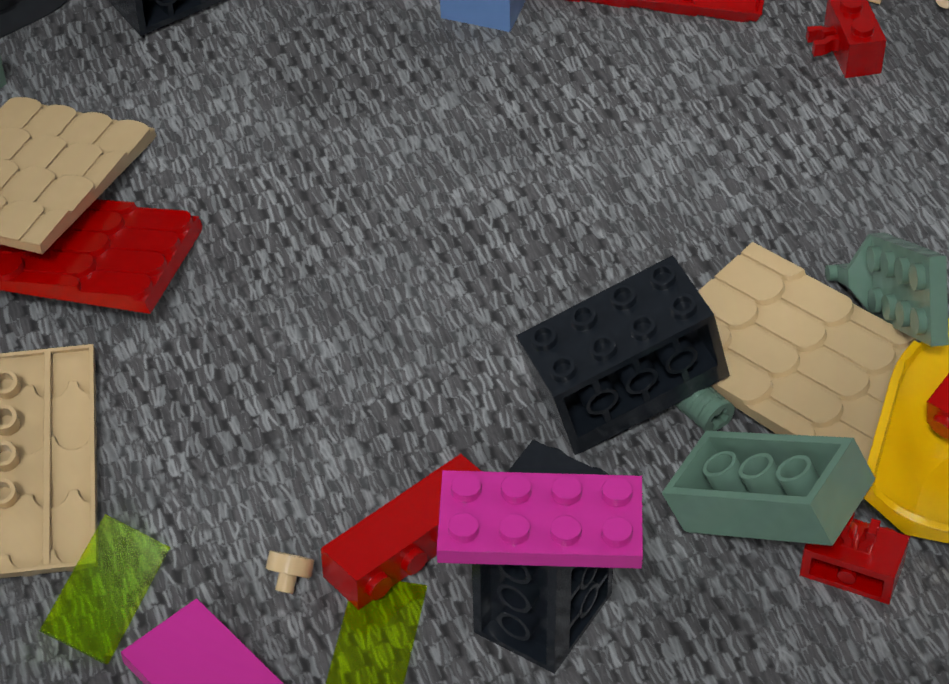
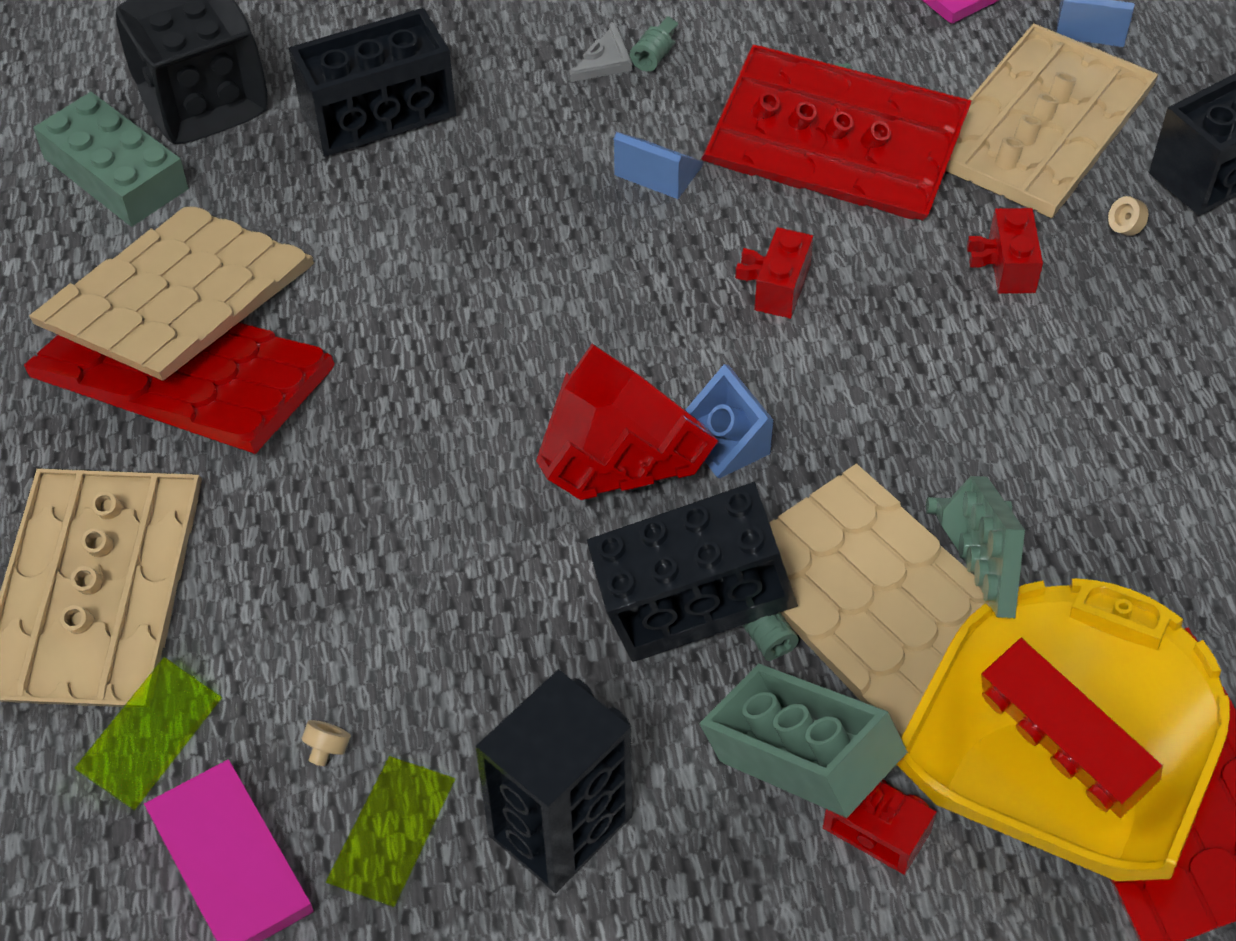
camera: 10 degrees right, 5 degrees up
(389, 541) = (442, 721): red brick -> none
(509, 246) = (617, 431): none -> red panel
(540, 519) = (542, 760): dark pink piece -> none
(616, 225) = (735, 420): none -> medium blue slope
(630, 83) = (779, 273): none -> red brick

